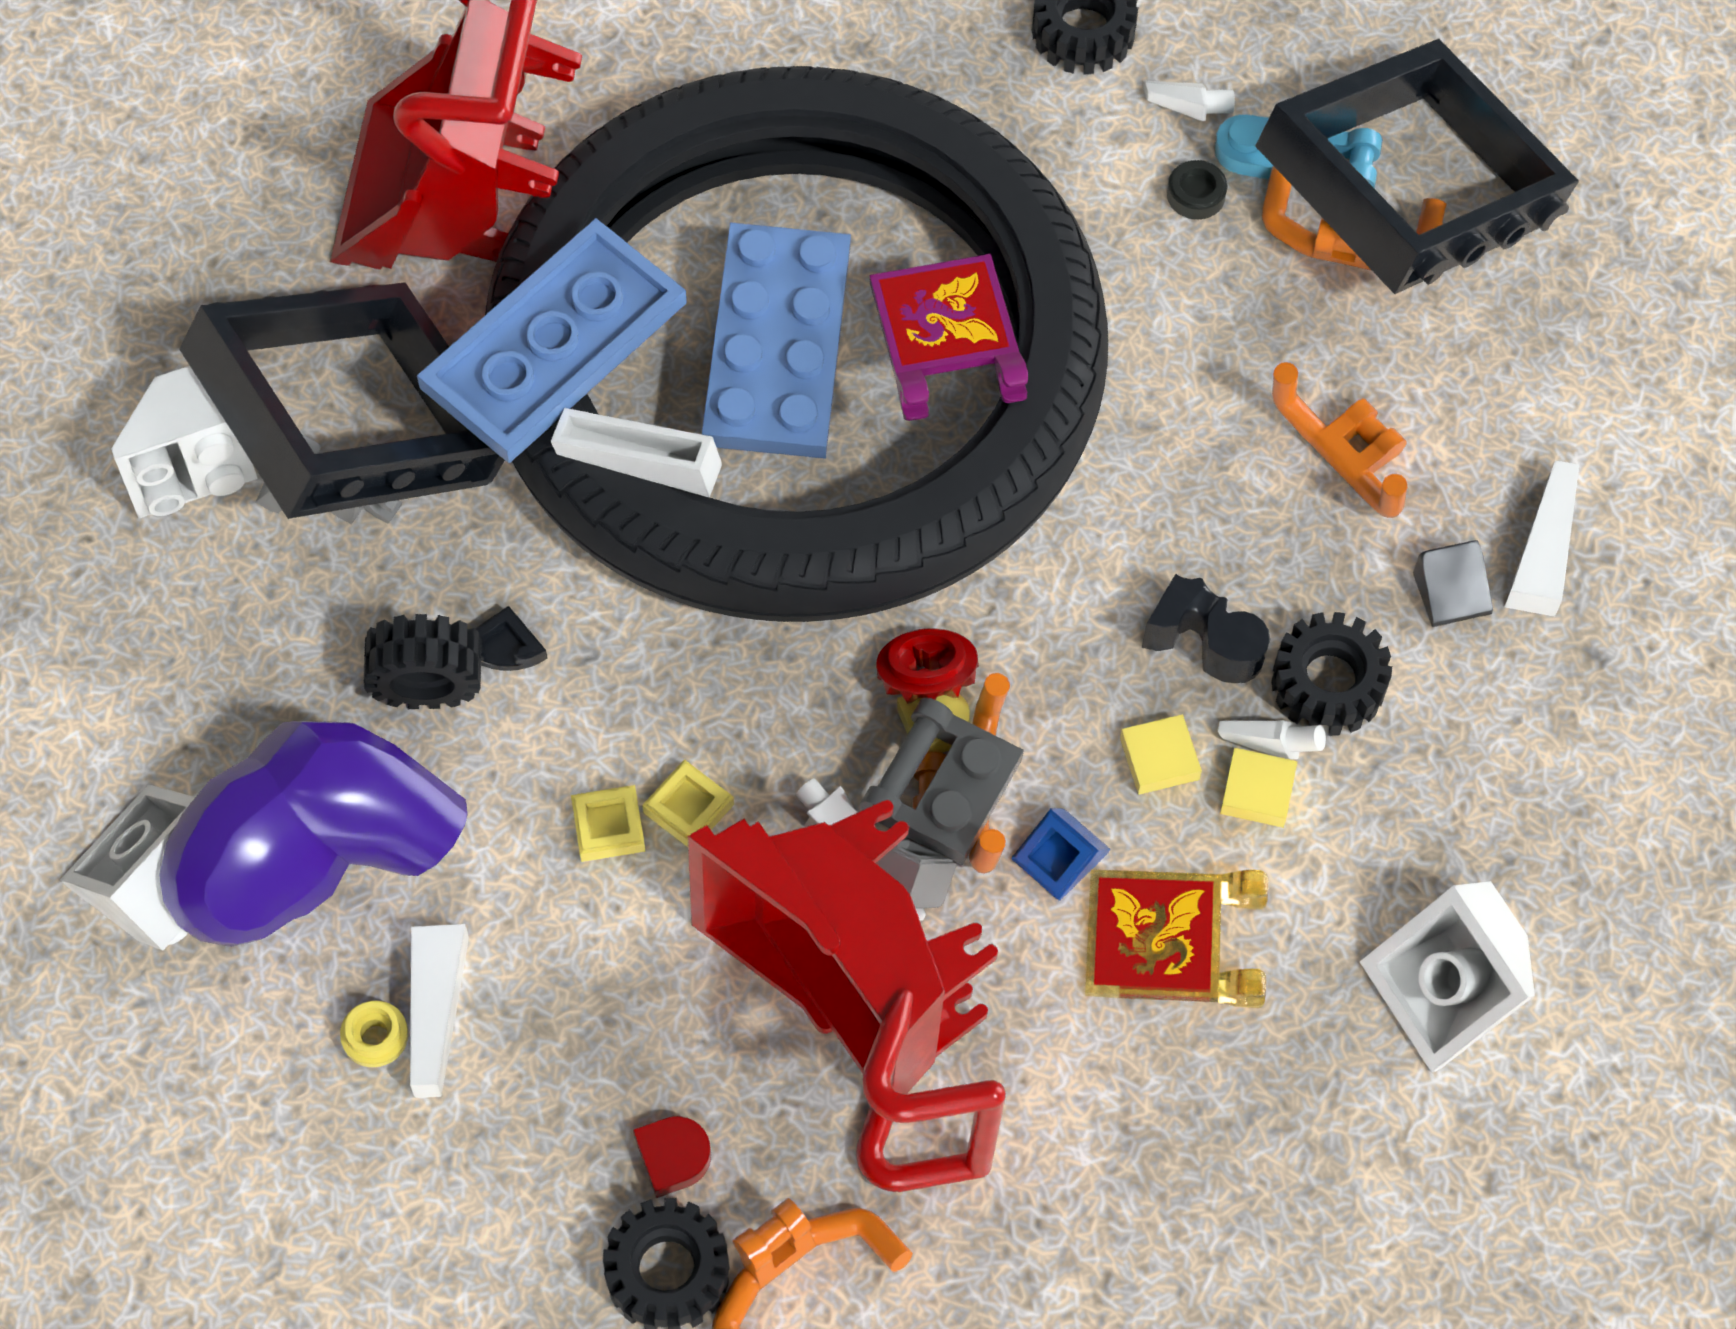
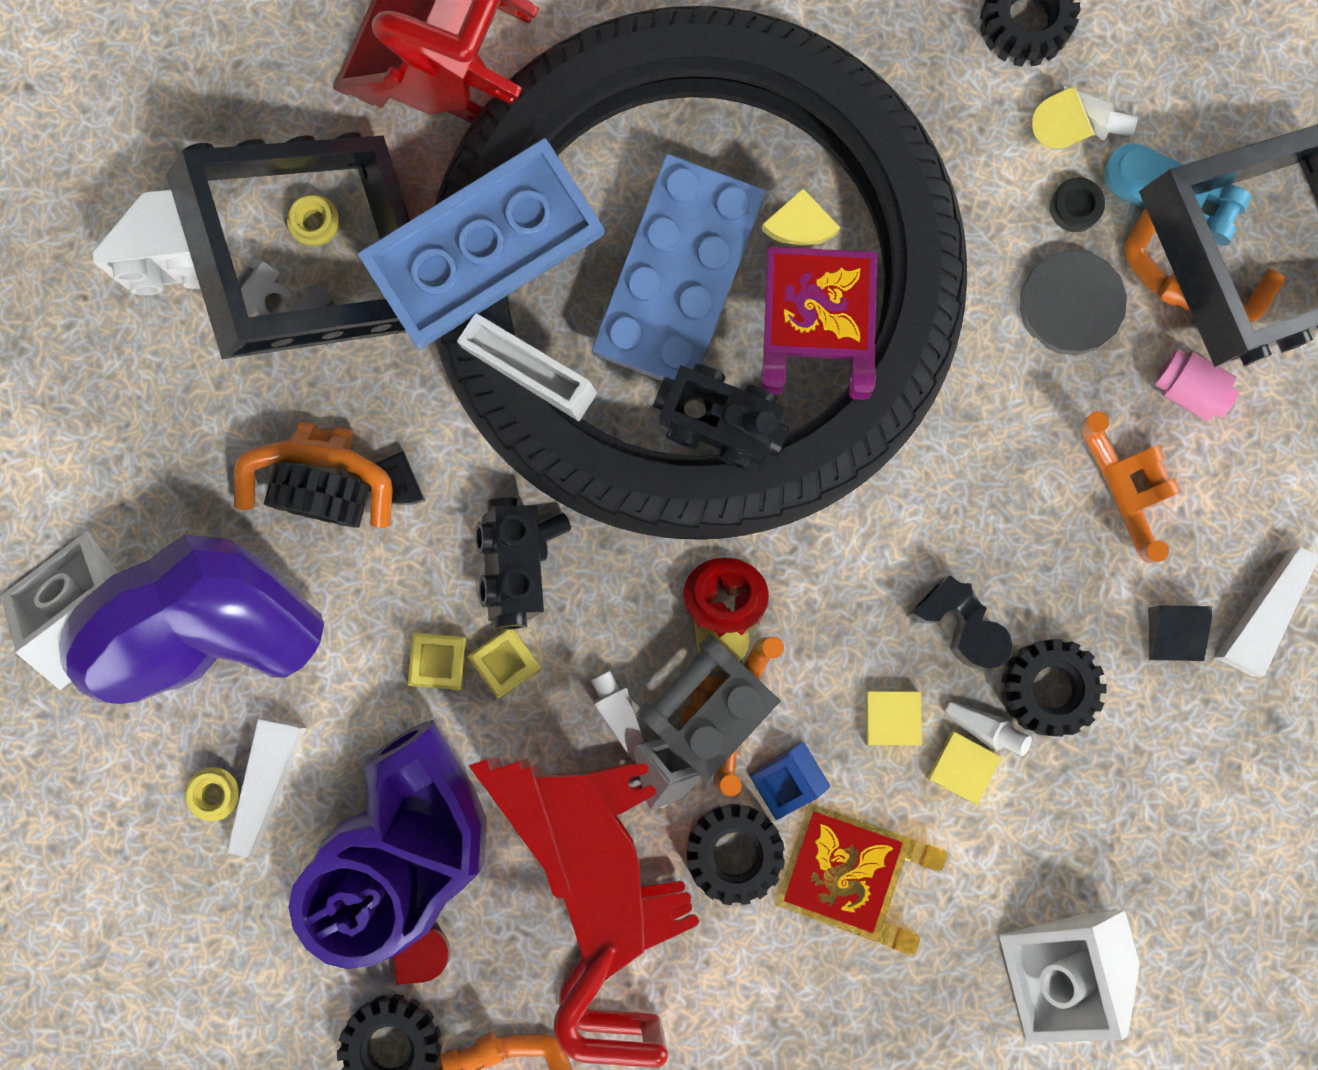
camera: 15 degrees right, 20 degrees up
(339, 379) = (302, 210): none -> light yellow plate
(353, 636) = (317, 448): none -> orange piece
(617, 1039) = (397, 862): none -> dark purple piece
(670, 683) = (513, 555): none -> black brick
(868, 444) = (735, 420): none -> black brick
(899, 243) = (801, 222): none -> light yellow tile
(1047, 913) = (744, 886): none -> black tyre
(1152, 110) = (1062, 120): none -> light yellow tile
(1224, 284) = (1073, 302): none -> dark grey tile
(1386, 329) = (1197, 385): none -> bright pink brick

